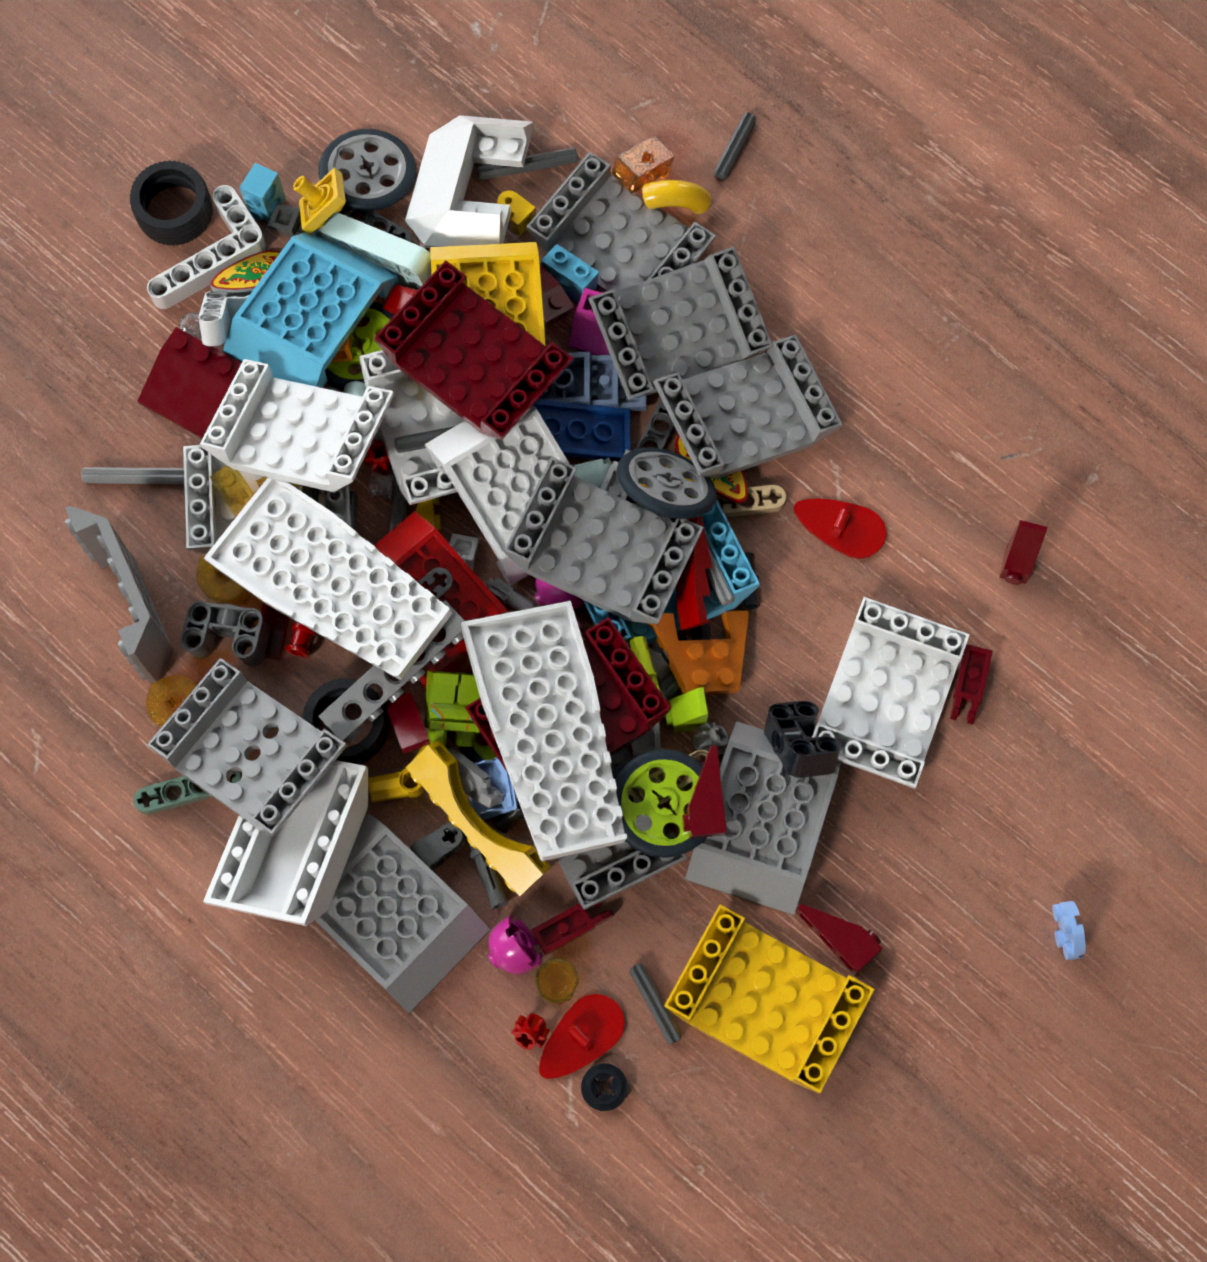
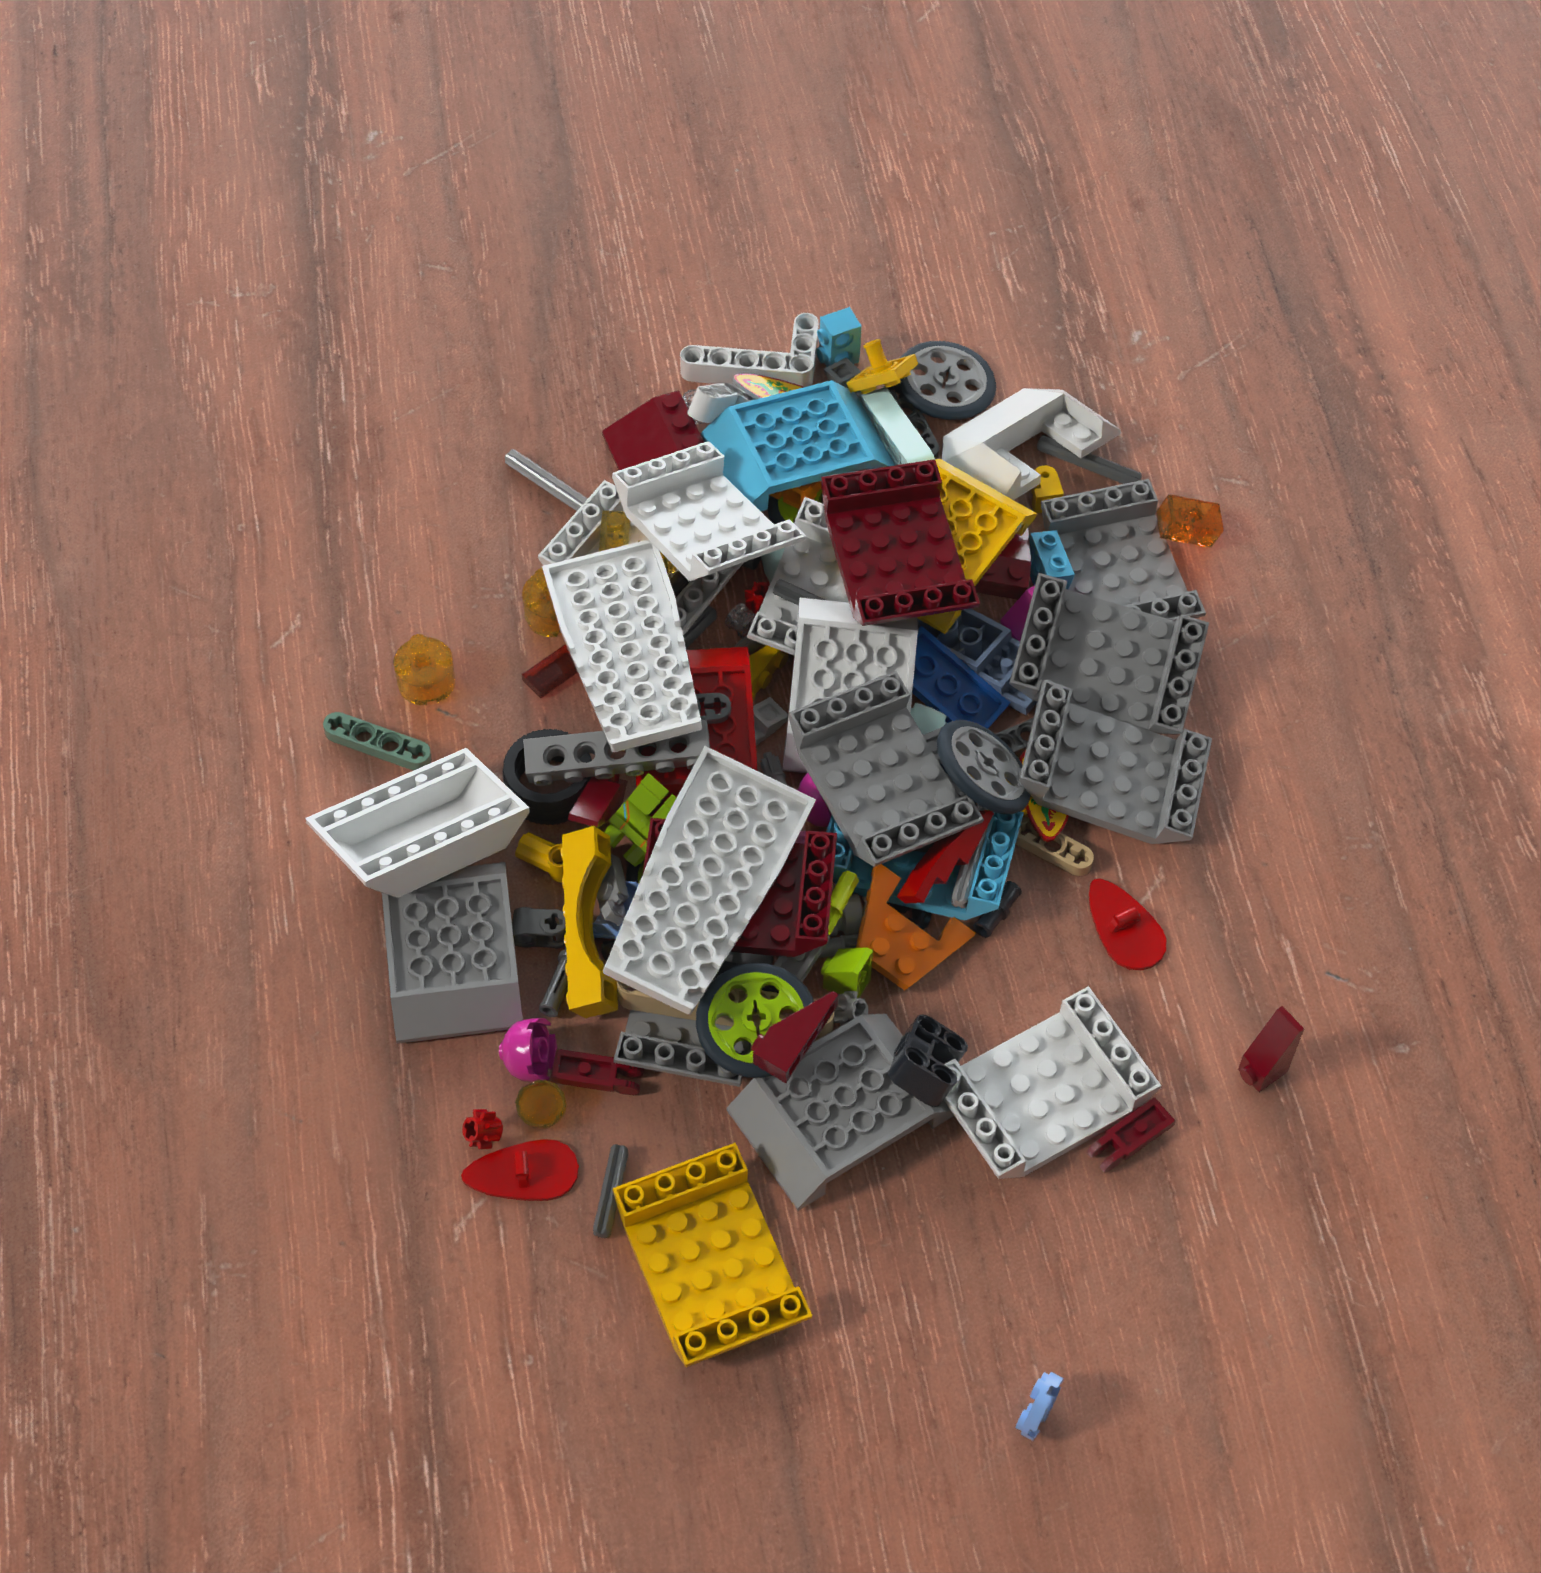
camera: 35 degrees right, 15 degrees down
(146, 640) = (448, 585): light grey slope -> none
(159, 177) = (759, 278): black tyre -> none
(220, 727) = (439, 703): light grey slope -> none
(226, 621) = (531, 646): dark grey beam -> none
(300, 641) = (568, 692): red bush -> none
(602, 1073) = (492, 1218): black gear -> none
(676, 194) = (1200, 561): yellow cylinder -> none
(734, 146) = (1289, 562): dark grey axle -> none
(845, 939) = (826, 1261): dark red slope -> none

